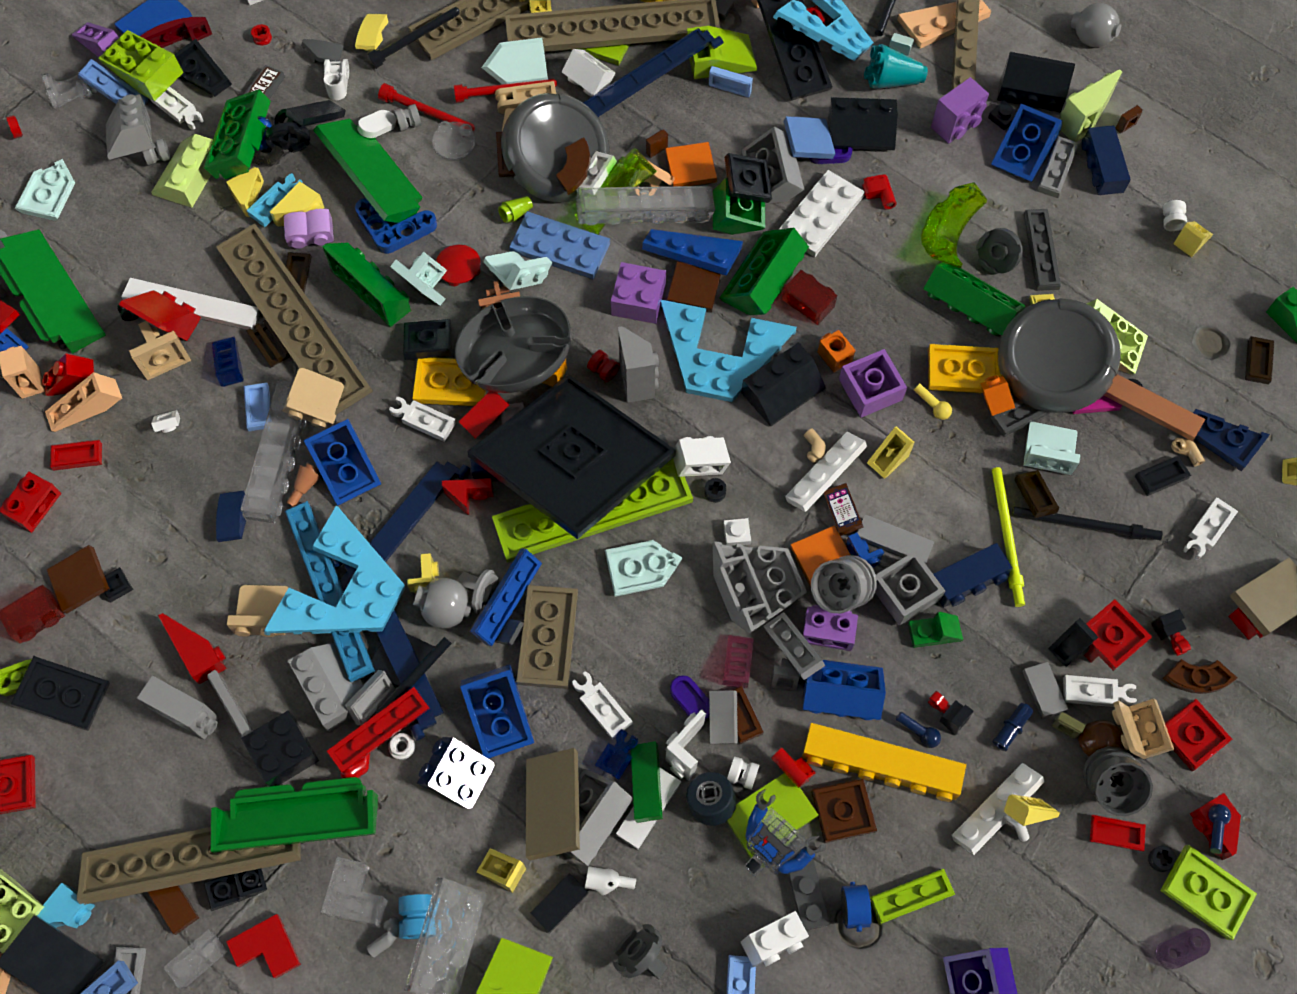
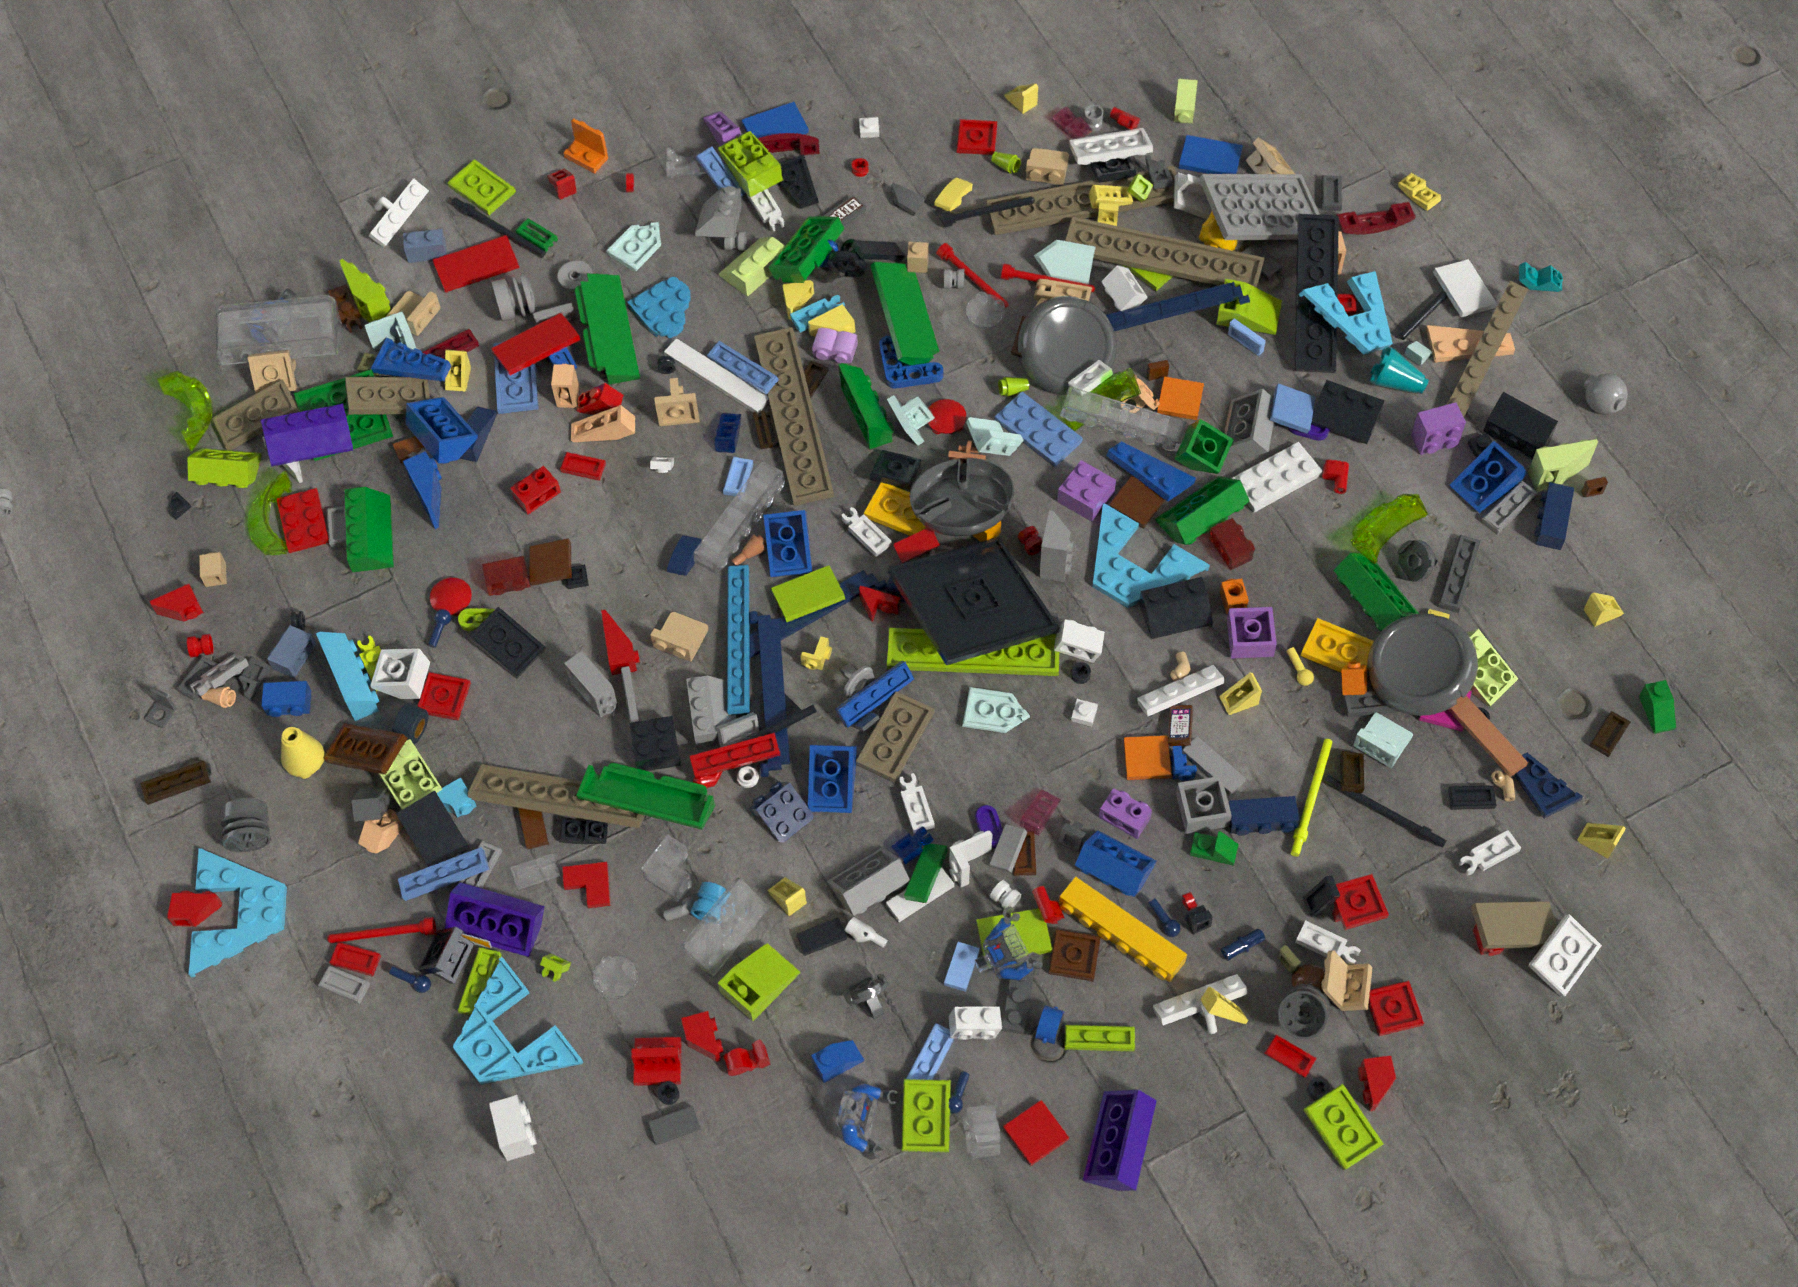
camera: 25 degrees right, 5 degrees down
(102, 249) = (663, 307): none -> dark azure plate
(164, 312) = (693, 376): red slope -> none
(216, 285) = (742, 367): none -> medium blue tile
(313, 398) = (784, 484): tan bracket -> none
(336, 78) = (908, 225): white piece -> none
(359, 104) = (917, 257): none -> tan brick
(365, 602) = (761, 658): medium azure wing -> none
(376, 124) = (925, 276): white tile -> none
(387, 509) = (808, 593): none -> lime tile
(443, 602) = (822, 679): light grey brick -> none
(552, 804) = (845, 859): dark tan tile -> none
(576, 167) = (1076, 367): reddish brown tile -> none
(714, 808) = (971, 903): black wheel -> none
(729, 874) = (961, 966): none -> light blue tile
(748, 178) = (1220, 425): black tile -> none
(755, 582) = (1081, 754): light grey wedge -> none
(794, 646) = (1088, 814): light grey plate -> none
(831, 585) = (1149, 779): light grey wheel -> none
(1045, 690) = (1284, 926): light grey tile -> none
(1171, 626) = (1415, 918): black piece -> none
(1174, 215) = (1594, 583): white wheel -> none
(1184, 947) = (1302, 1159): clear purple plate -> none
(1199, 679) = (1421, 968): reddish brown tile -> none
(1219, 816) = (1377, 1070): dark blue bar -> none

